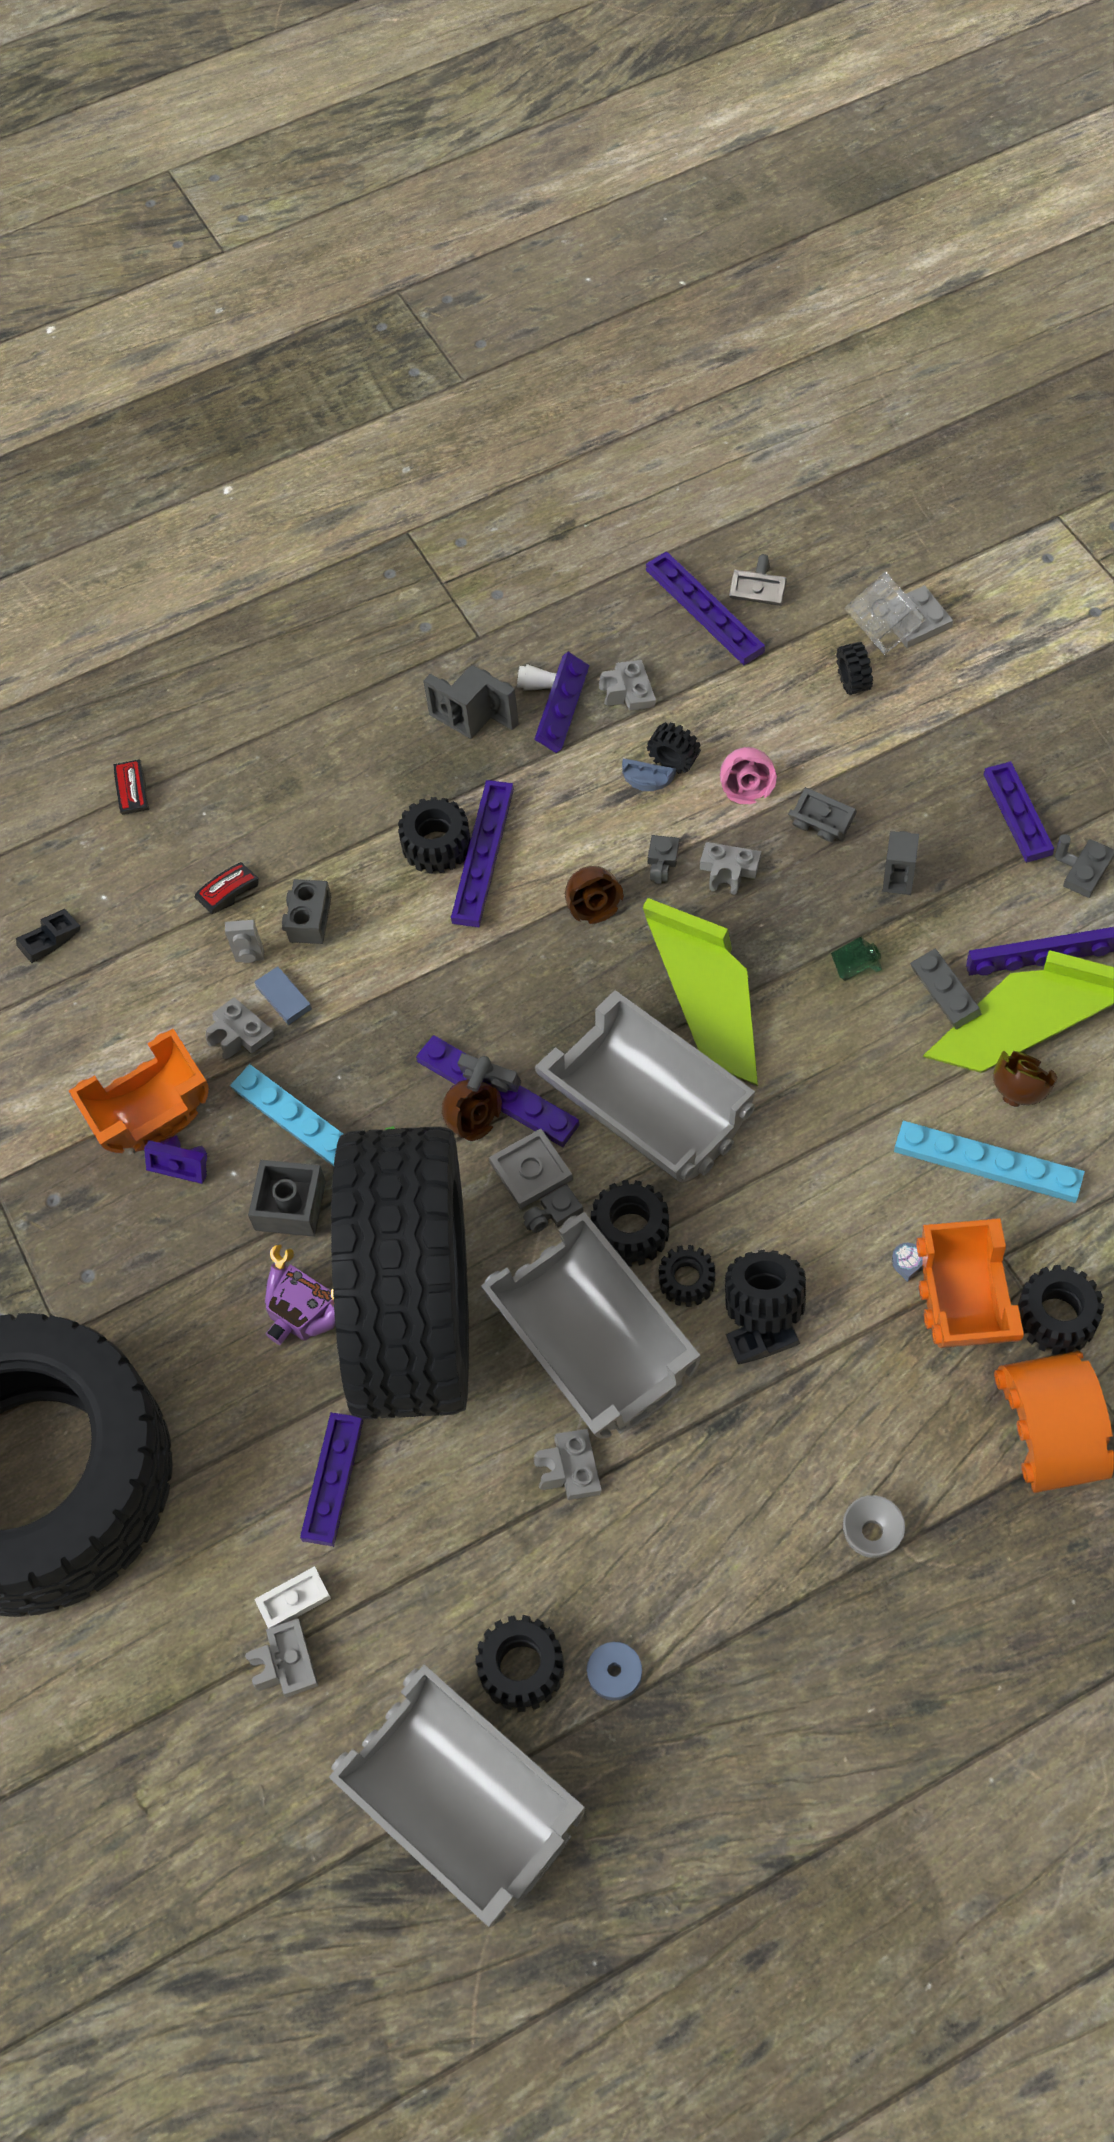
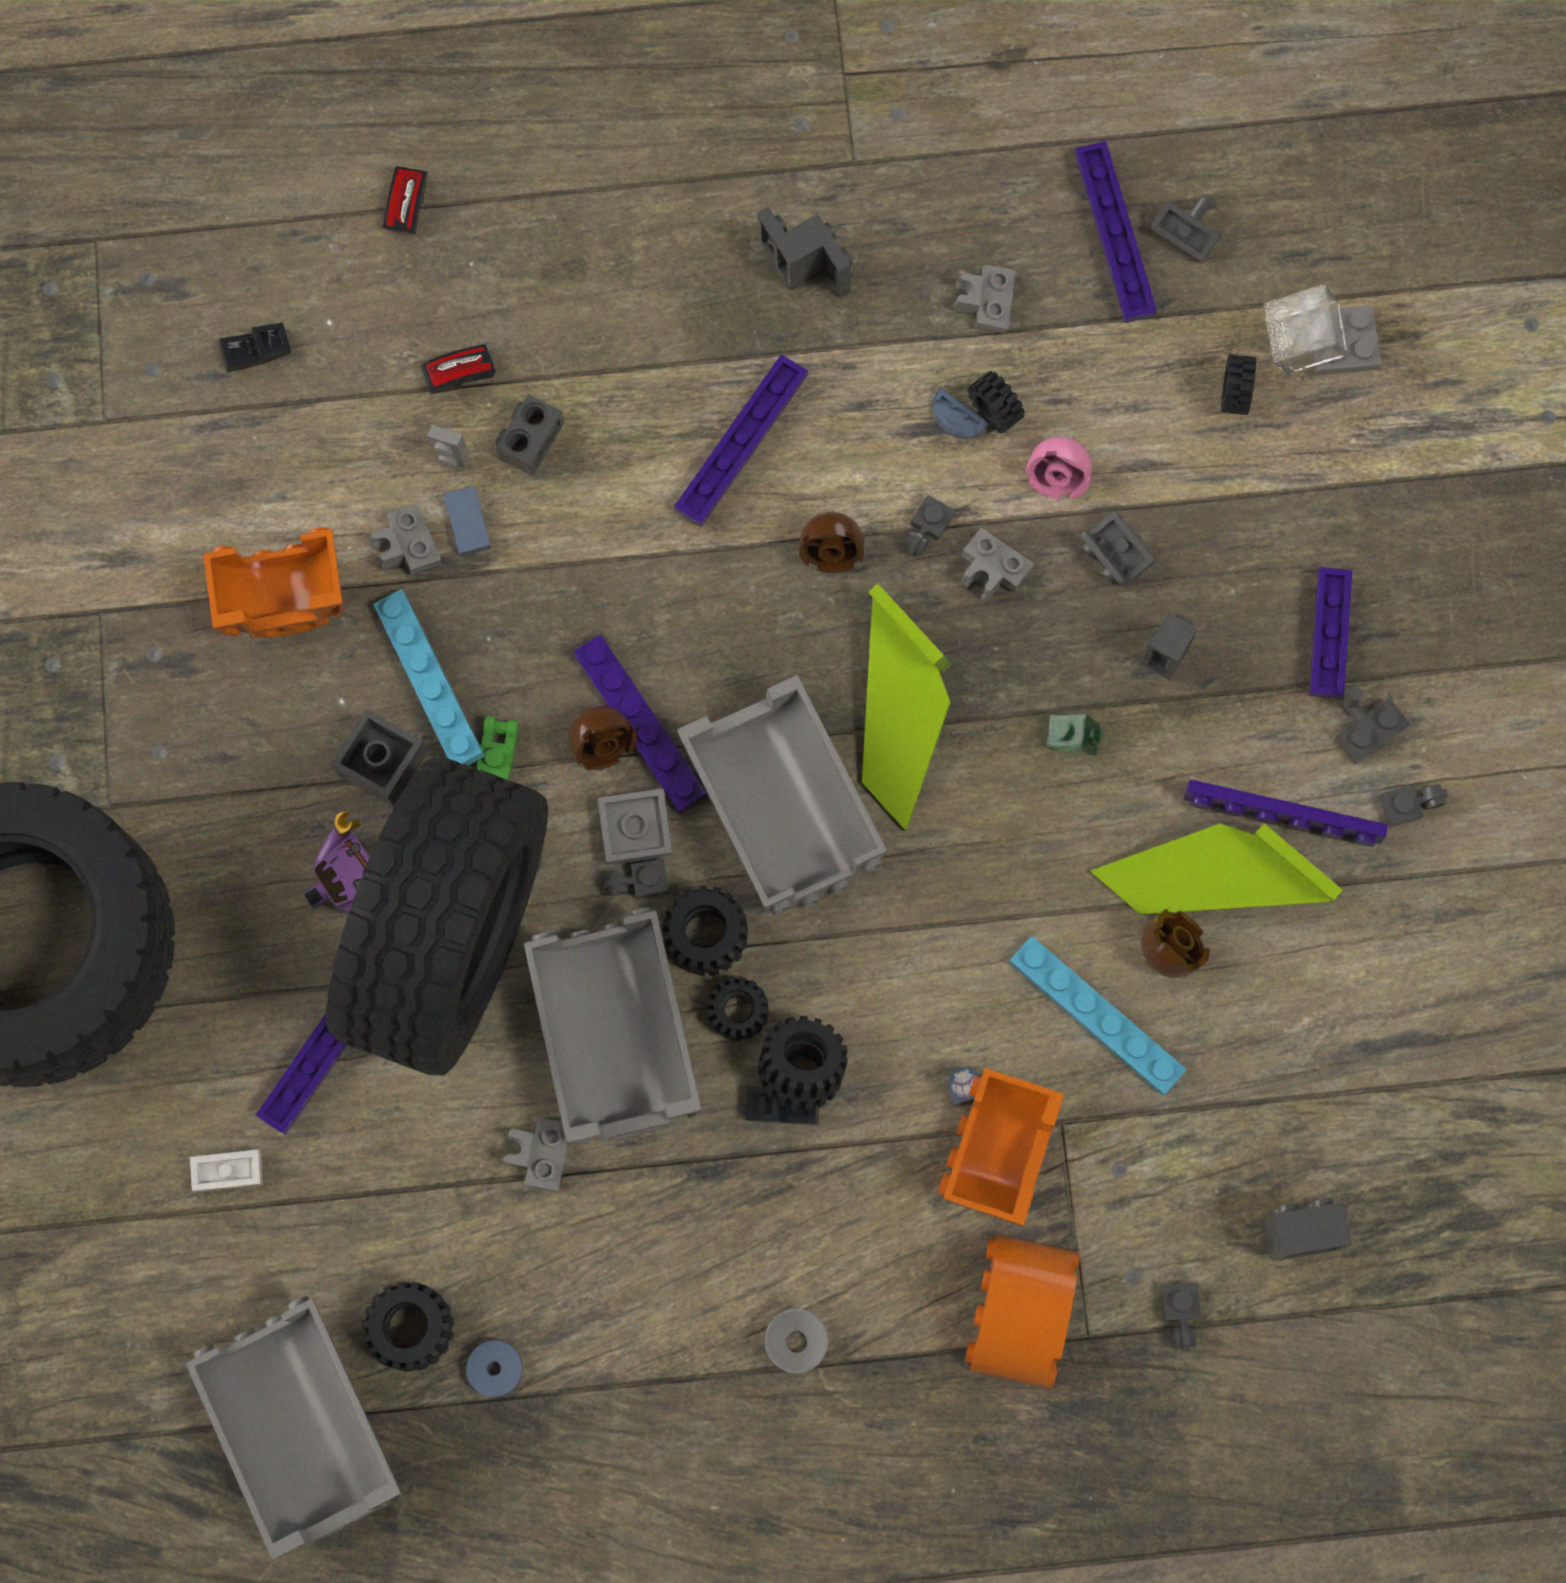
camera: 20 degrees right, 15 degrees up
(174, 1161) = (280, 661): dark purple tile -> none
(285, 1660) = (197, 1227): light grey plate -> none
(434, 817) = (693, 376): black tyre -> none
(483, 1070) = (624, 702): dark grey plate -> none
(534, 678) = (889, 246): white cone -> none
(561, 702) = (905, 288): dark purple plate -> none
(945, 988) = (1147, 808): dark grey plate -> none
(1065, 1286) = (1105, 1184): black tyre -> none

